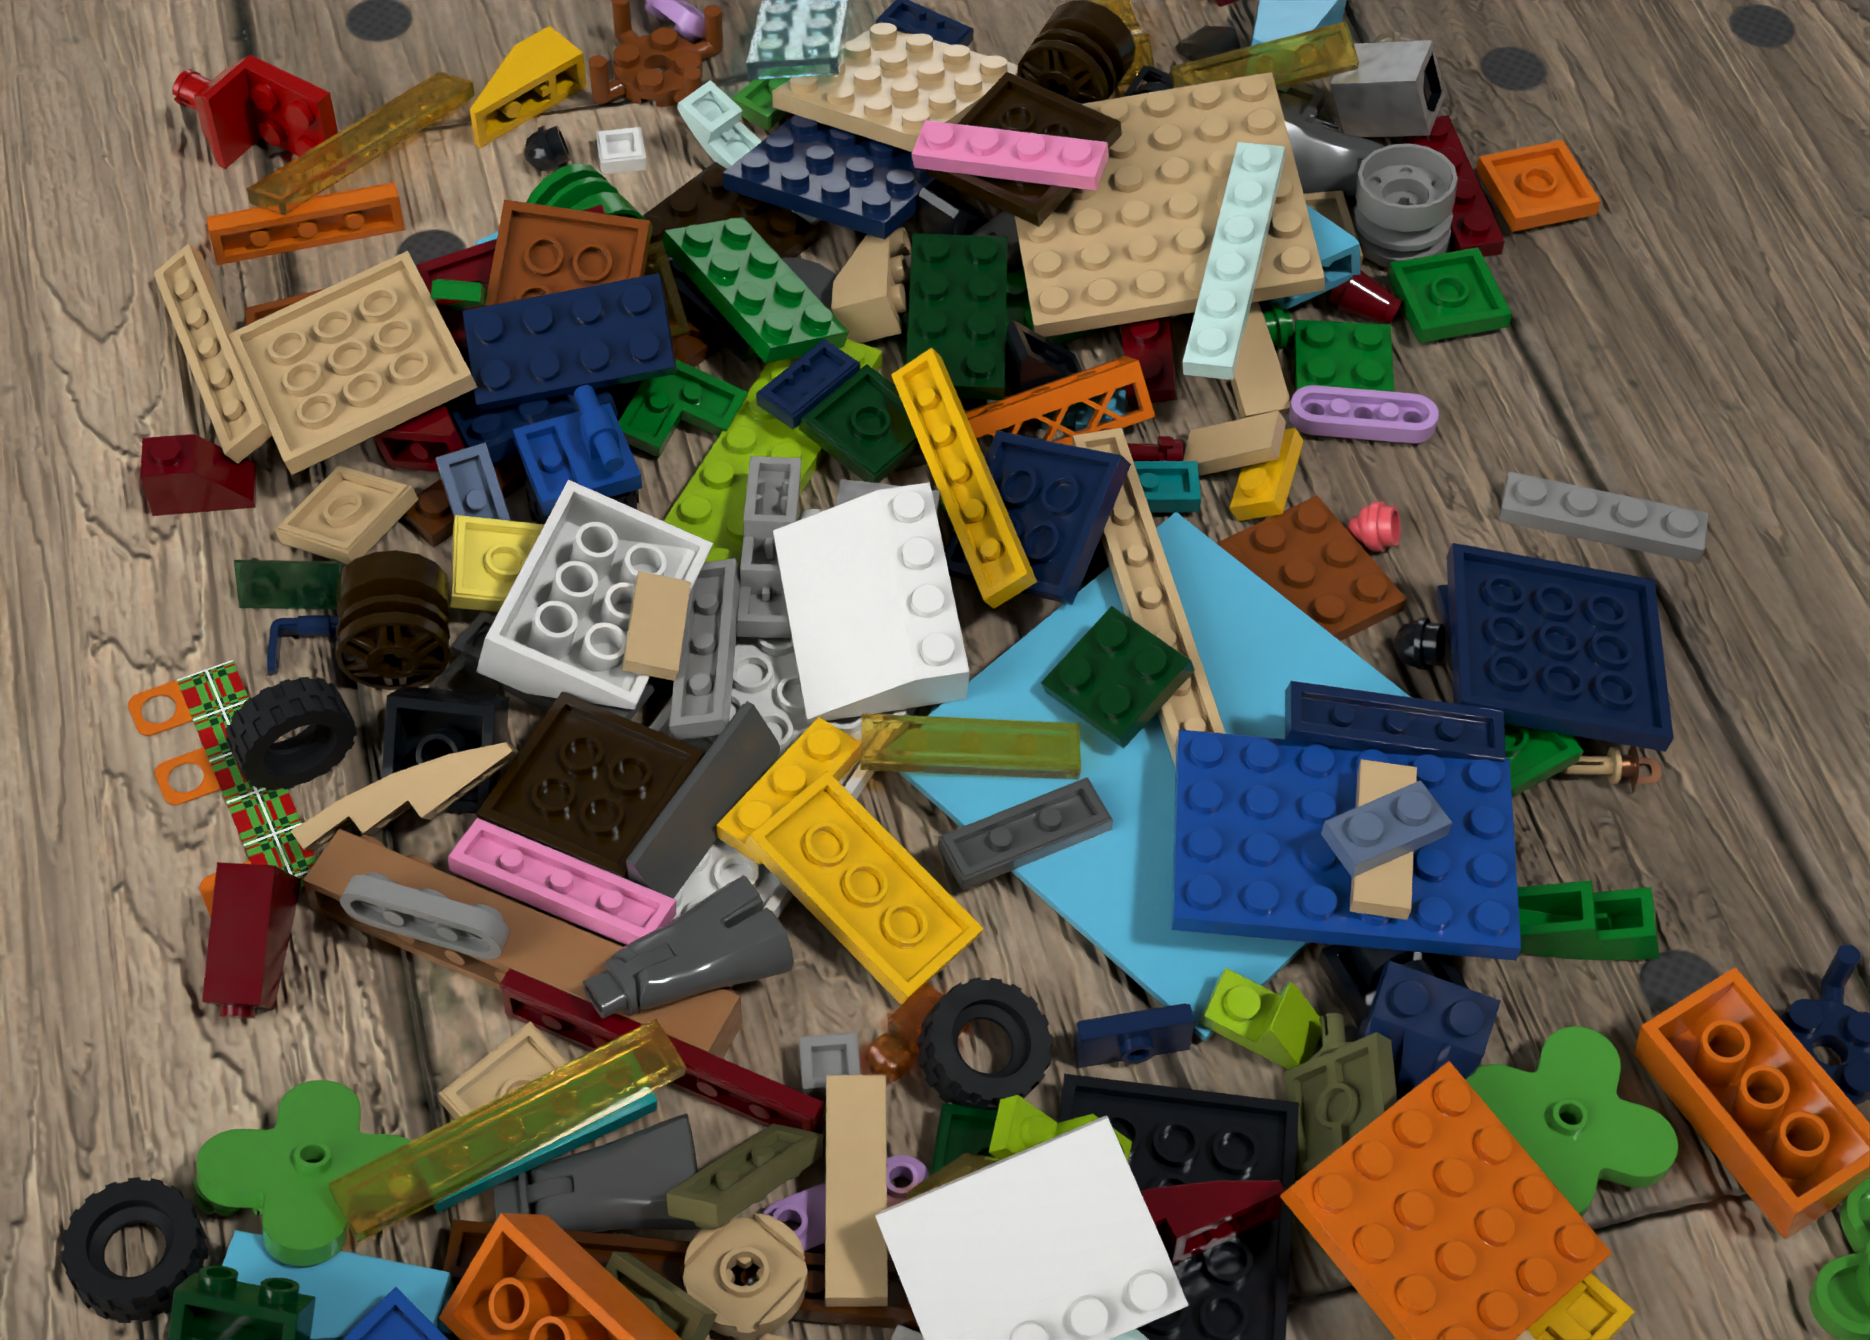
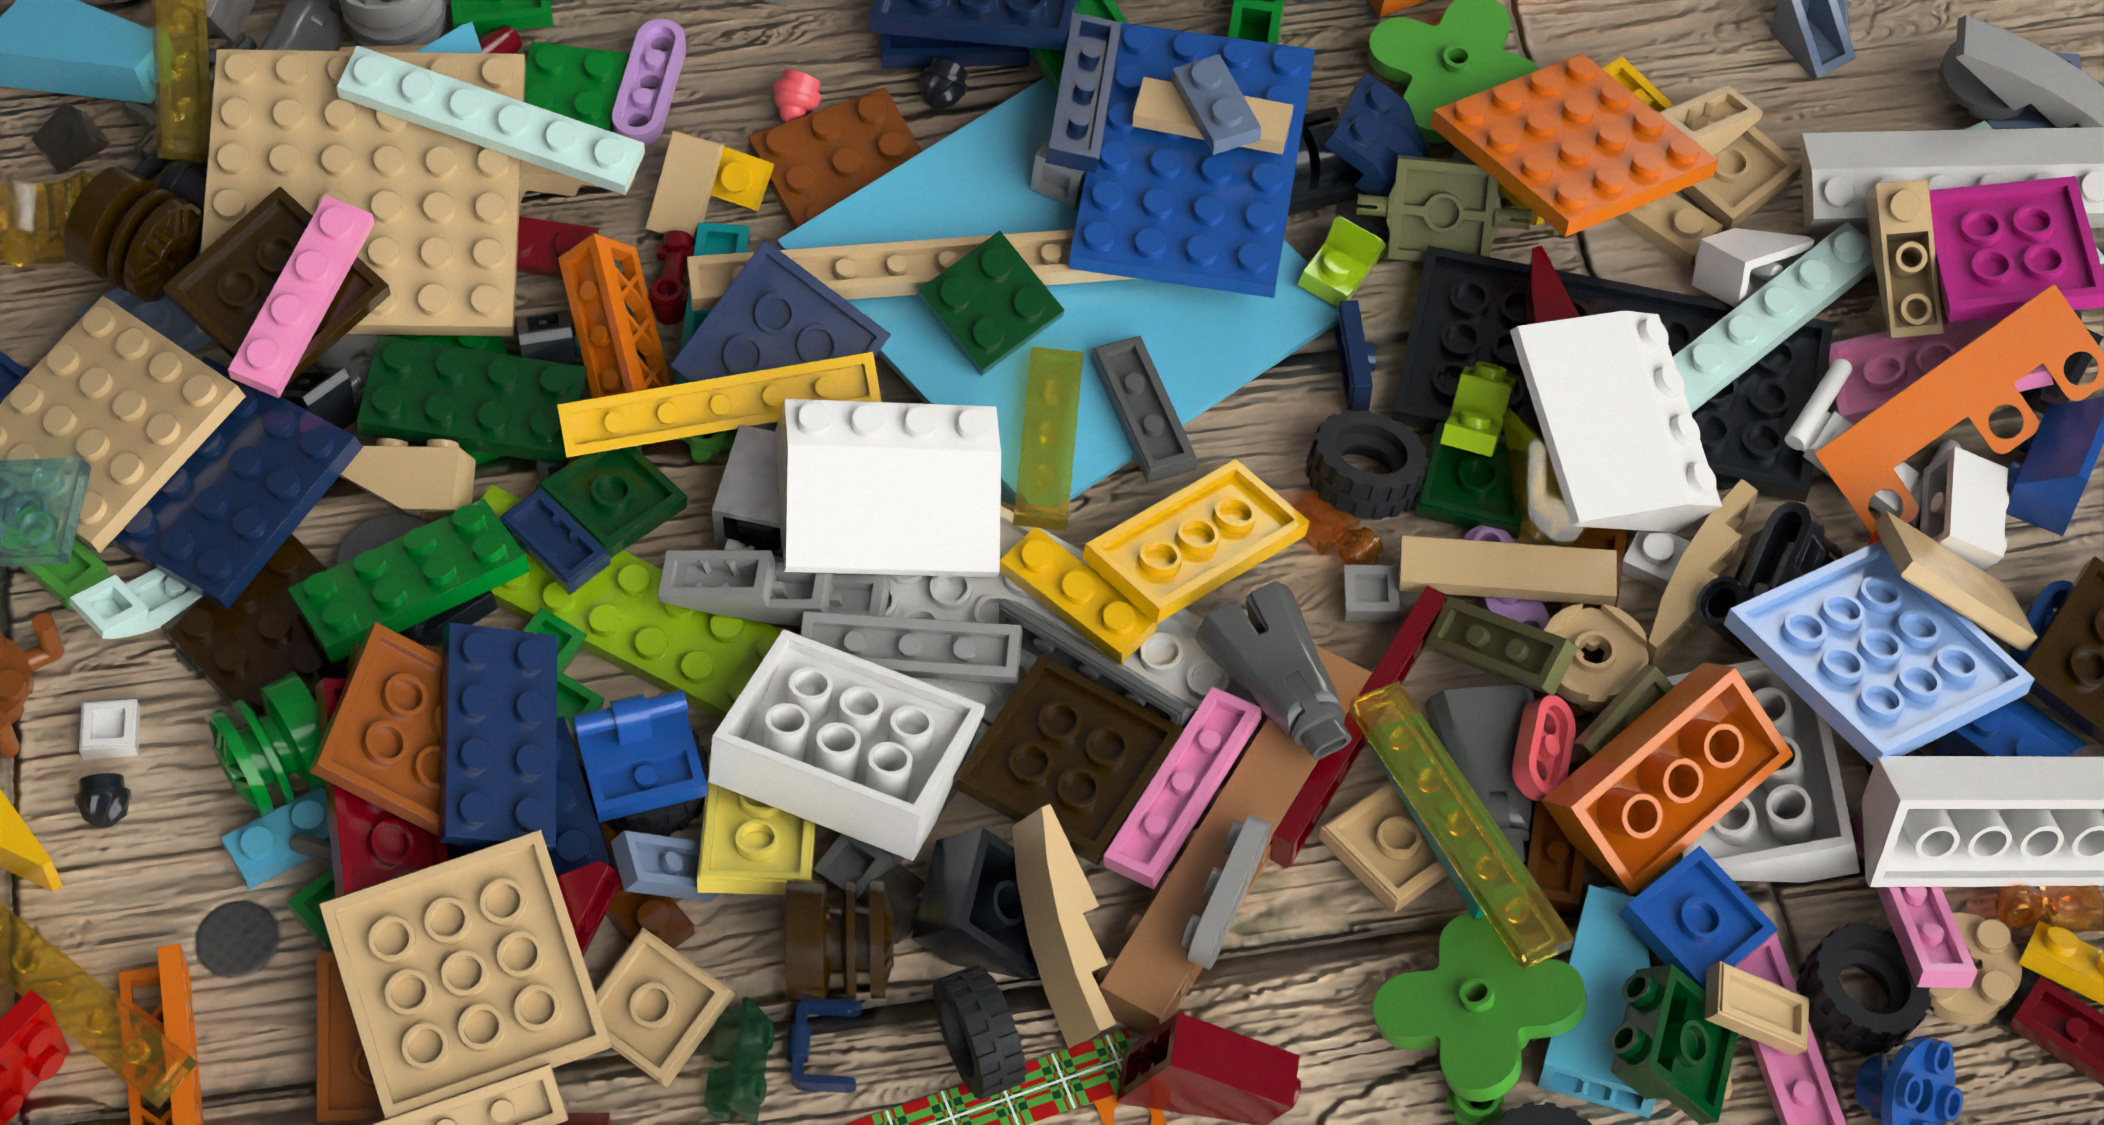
camera: 85 degrees left, 5 degrees up
(458, 295) = (410, 843): green tile -> none
(619, 1221) = (1543, 747): none -> coral plate
(656, 626) = (899, 675): tan tile -> none

